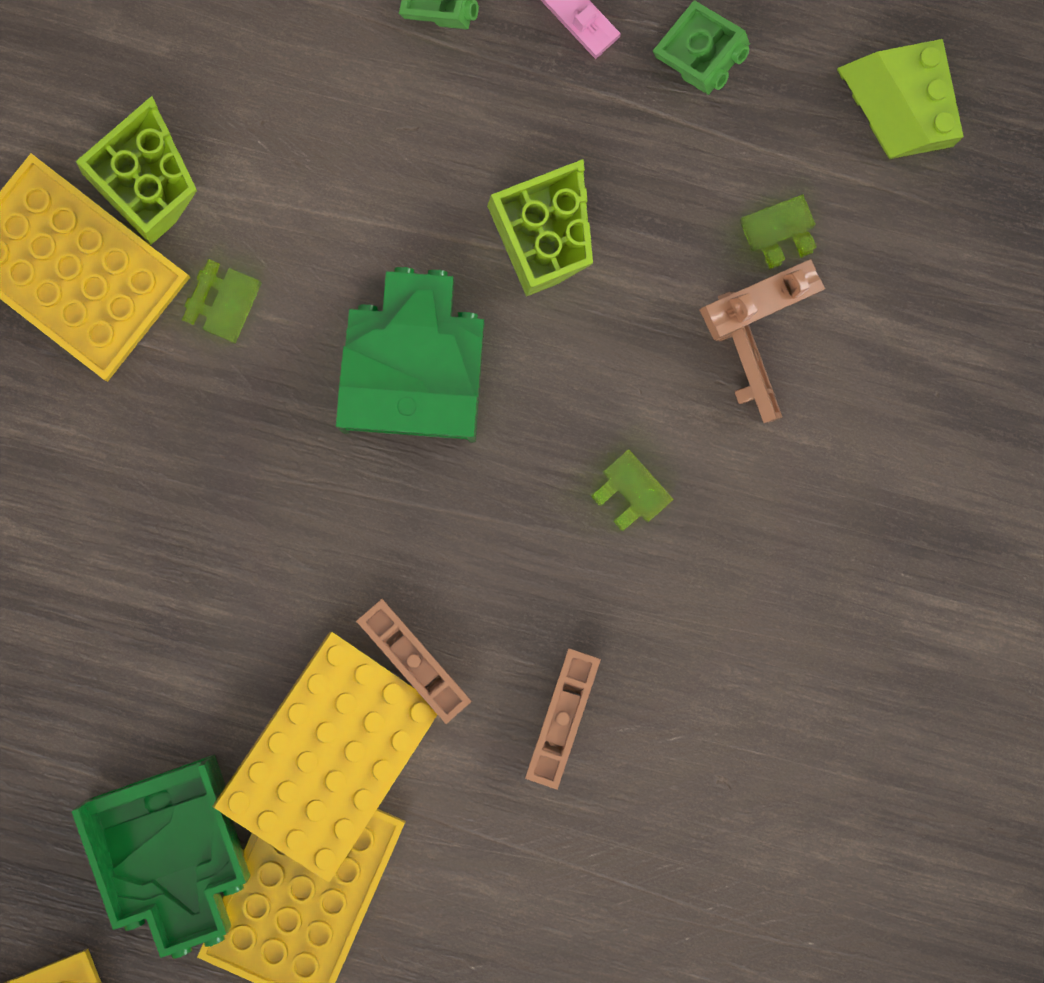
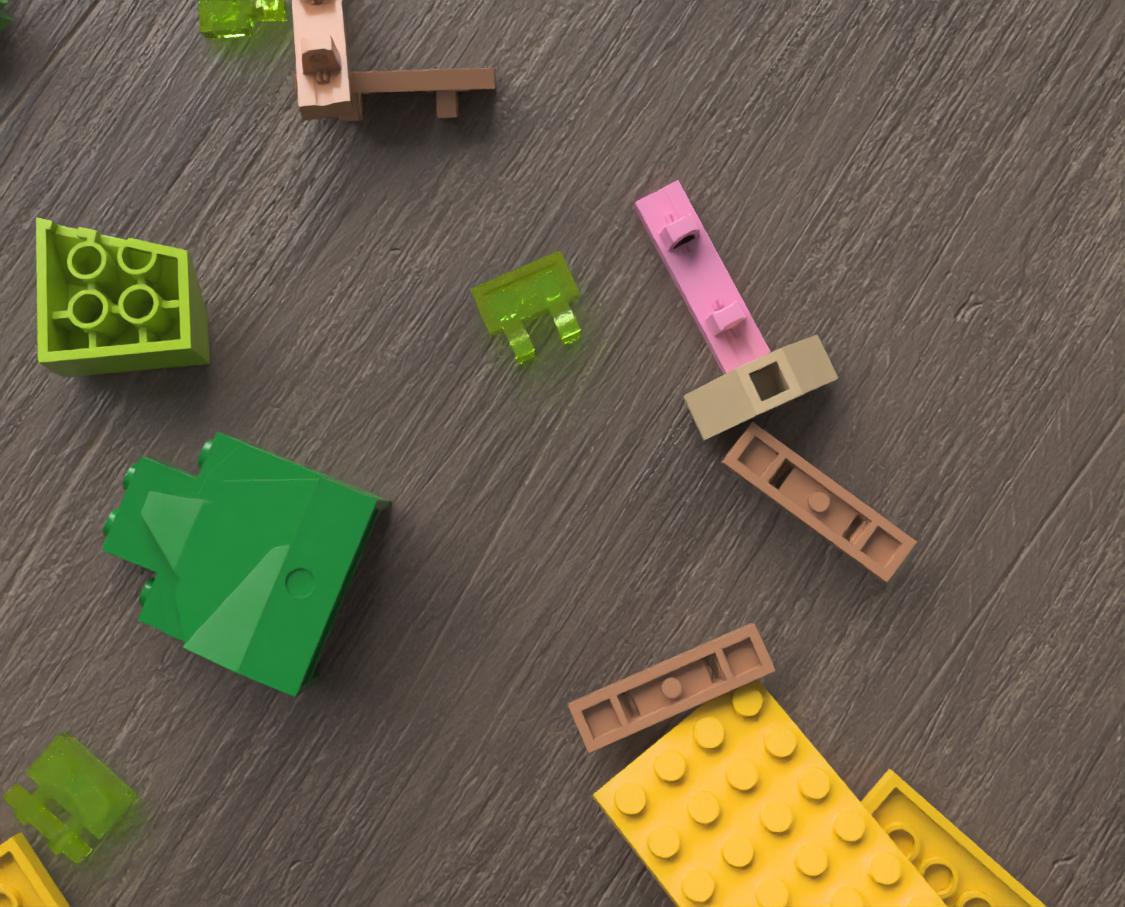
camera: 70 degrees left, 0 degrees up
(627, 659) = (760, 386): none -> tan slope
(686, 598) = (701, 278): none -> bright pink hinge

